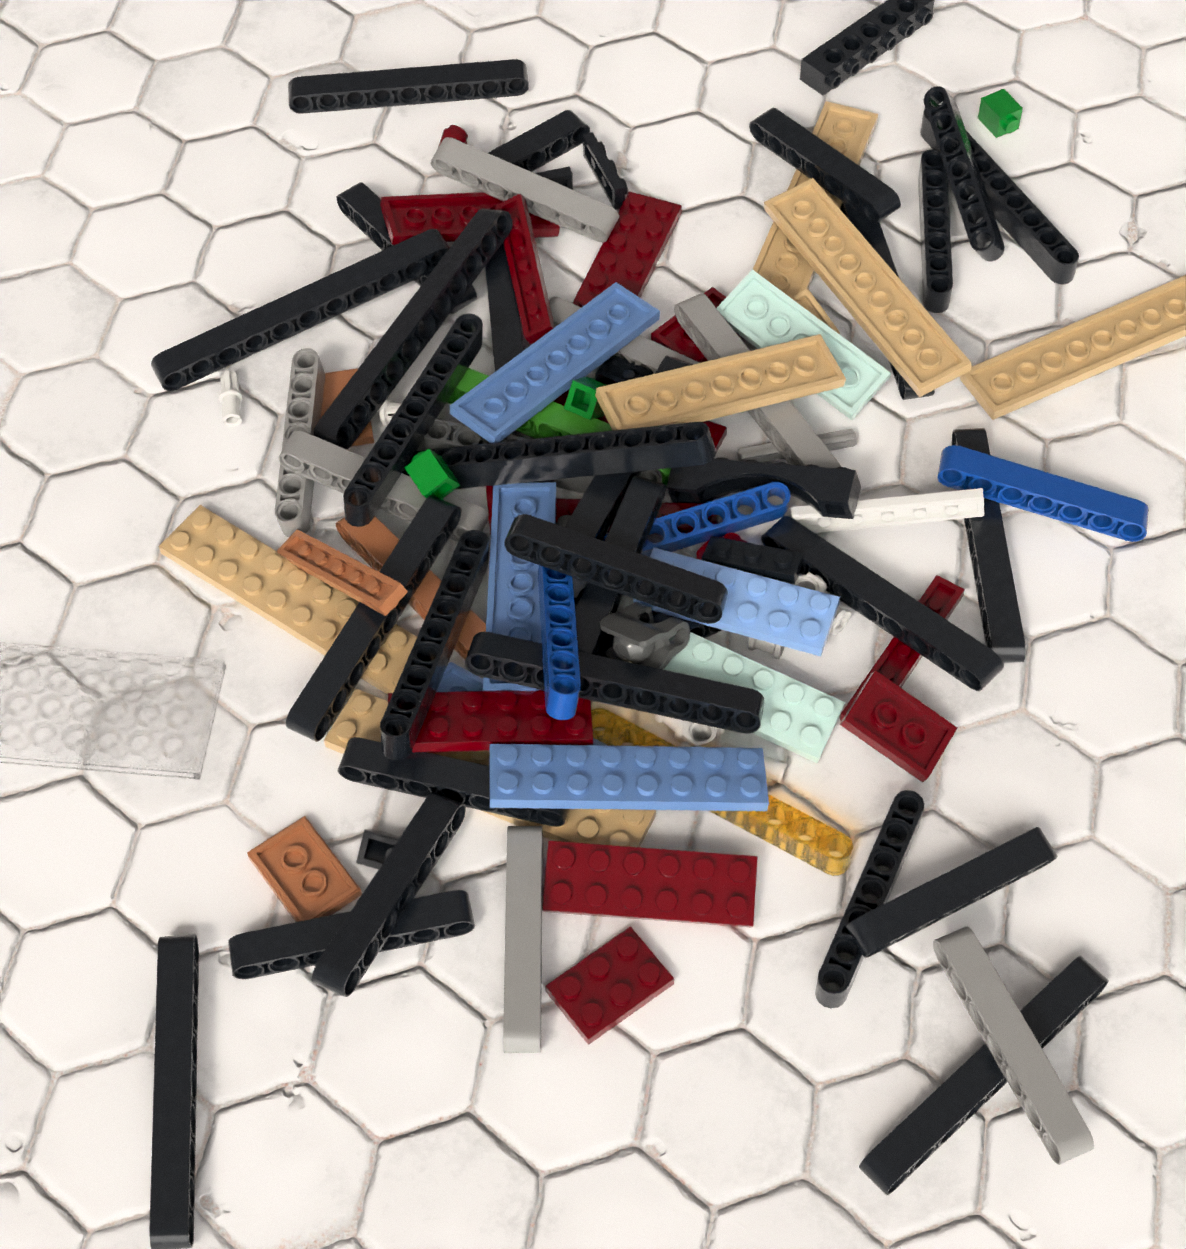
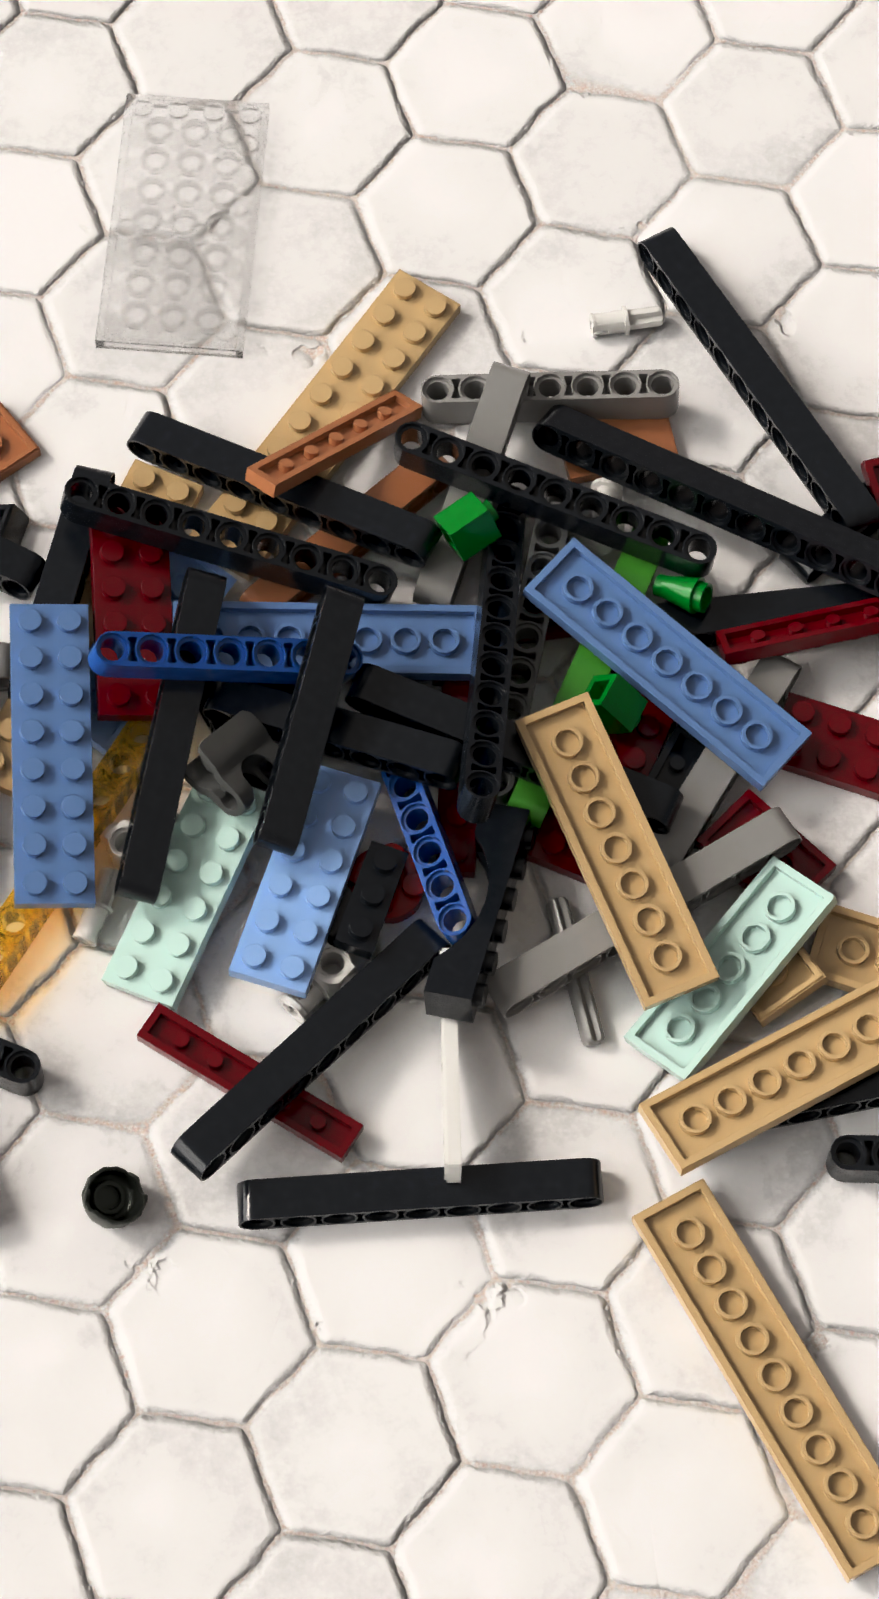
camera: 85 degrees right, 10 degrees up
(492, 352) = (686, 592): none -> green cone
(898, 726) = (134, 1064): dark red plate -> none
(1013, 742) = (113, 1197): none -> pearl dark grey hair
(1044, 493) = (482, 1260): blue beam -> none

